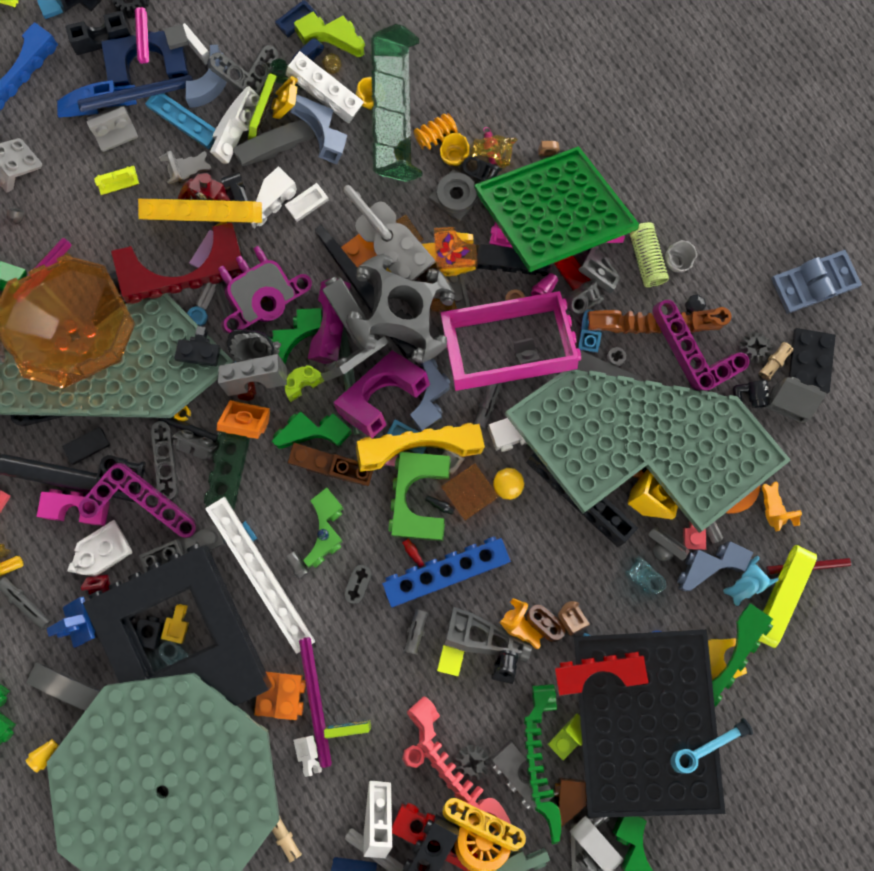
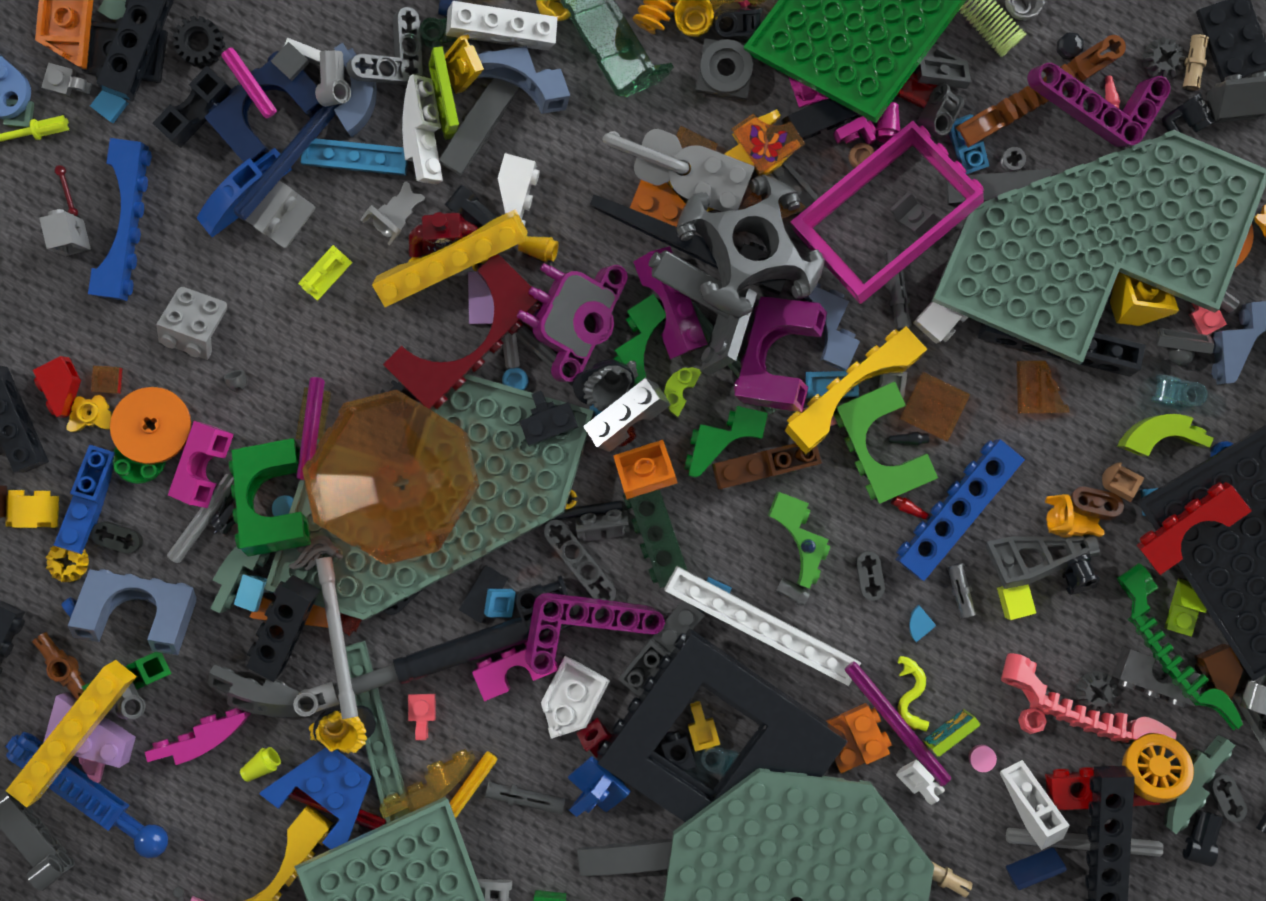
camera: 25 degrees left, 10 degrees up
(91, 456) = (499, 602): none -> dark azure tile
(196, 59) = (333, 87): none -> light grey piece
(266, 240) = (540, 247): none -> yellow cone
(306, 202) = (558, 175): white tile -> none
(349, 667) = (912, 667): none -> neon yellow animal
(362, 764) = (982, 758): none -> bright pink tile
(373, 639) = (920, 623): none -> dark azure tile
(482, 828) = (1149, 745): yellow beam -> none
(508, 483) = (971, 372): yellow hair -> none
(517, 277) = (851, 131): none -> dark pink bracket
(548, 520) = (1037, 389): none -> clear orange wing
(621, 594) = (1147, 432): none -> lime arch
(706, 352) = (1110, 91): none -> coral piece

